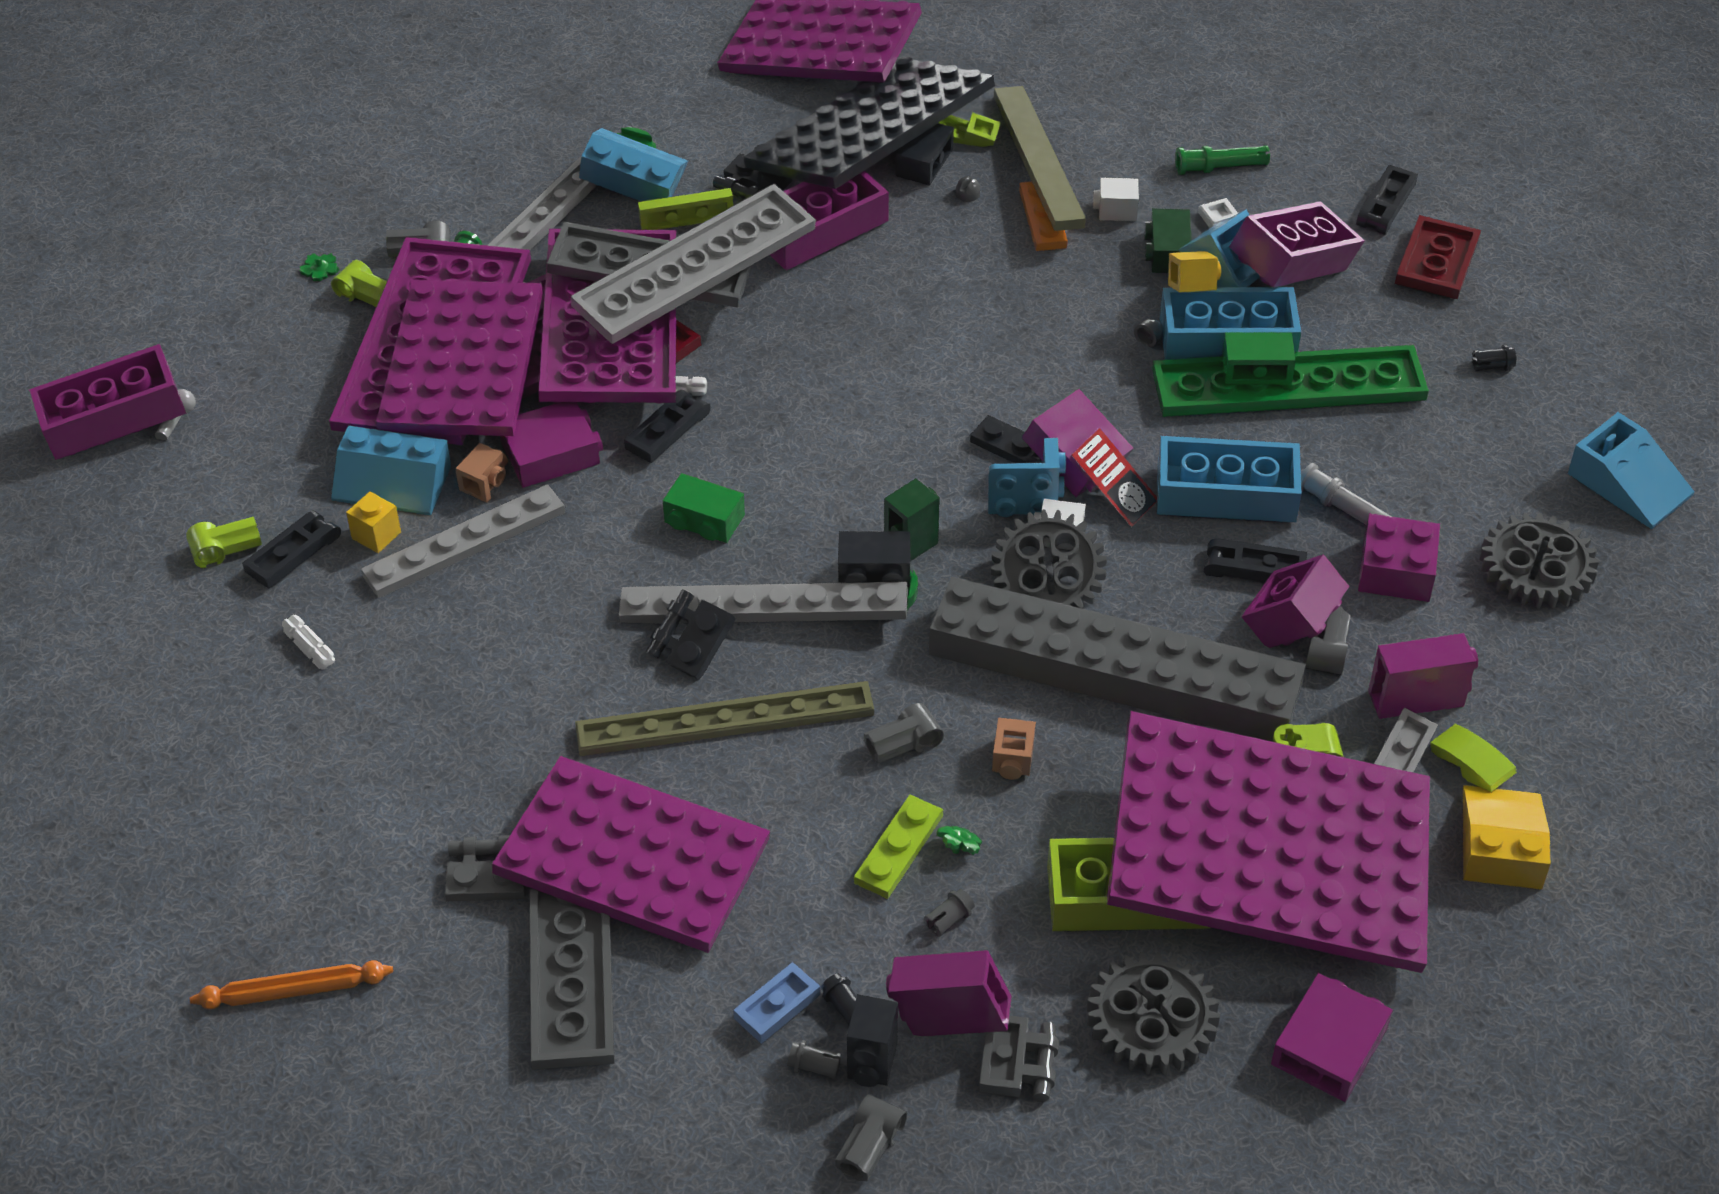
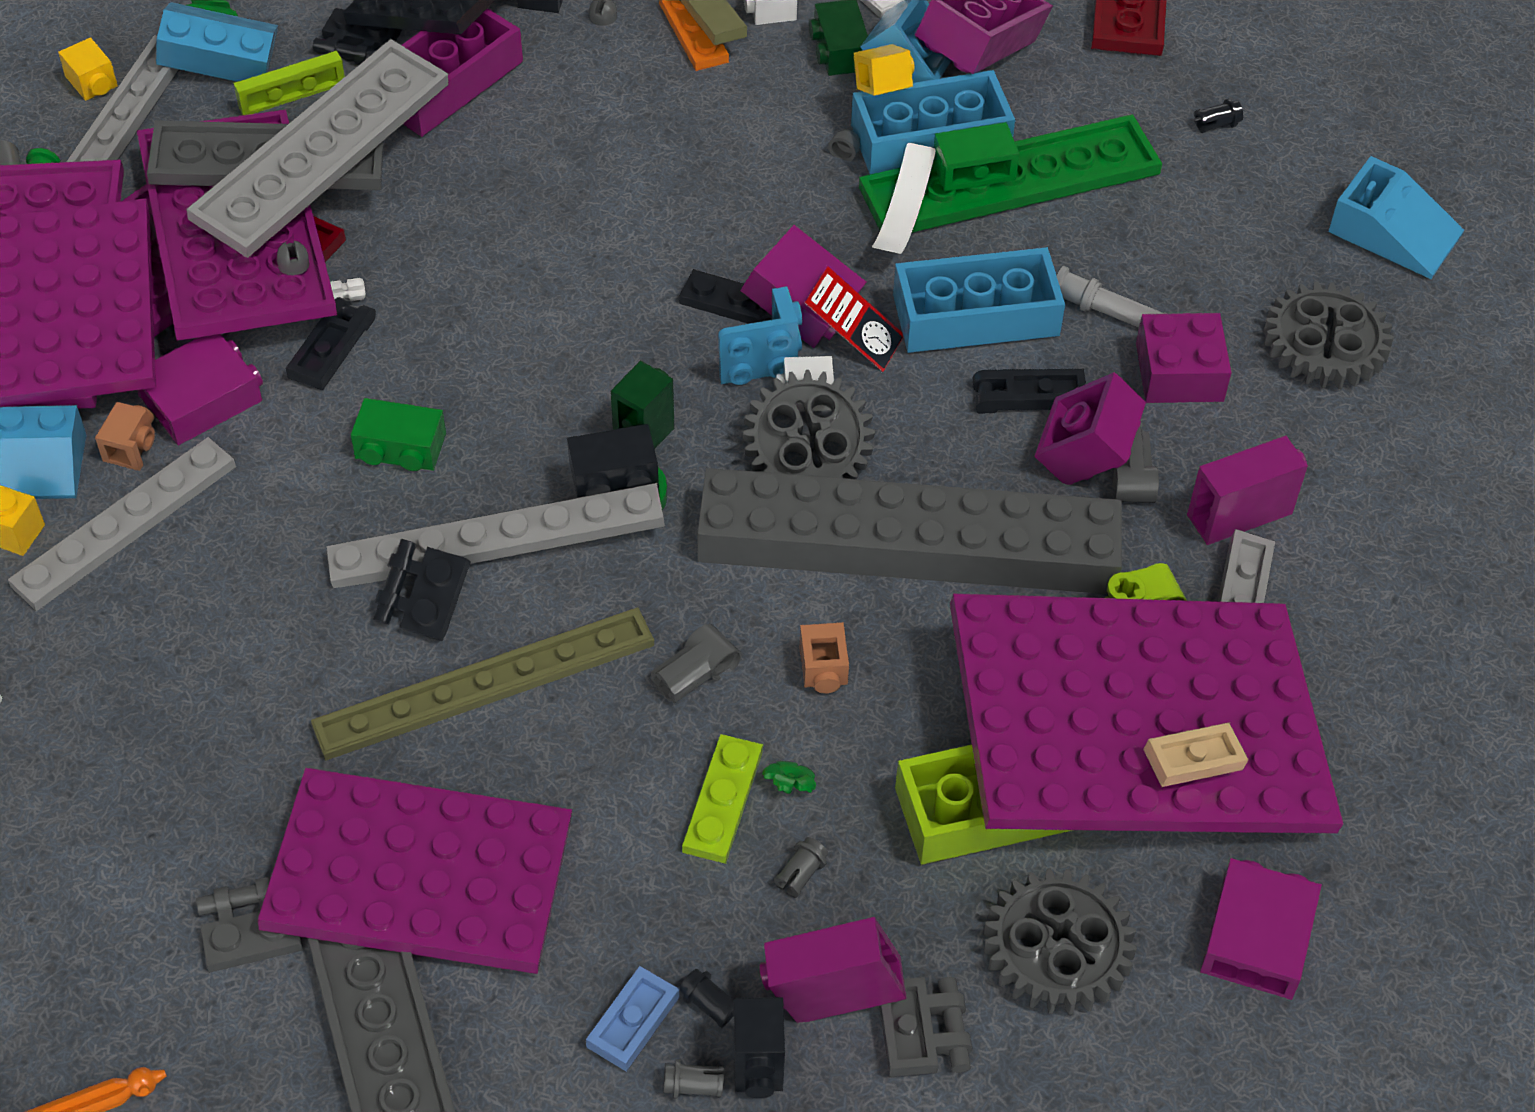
camera: 15 degrees left, 5 degrees up
(522, 173) = (88, 69): none -> yellow brick
(649, 357) = (293, 266): none -> dark grey hinge
(1189, 384) = (906, 198): none -> white sticker
(1304, 878) = (1195, 754): none -> tan plate
(1477, 758) = (1327, 573): lime slope -> none
(1505, 838) = (1379, 656): yellow slope -> none

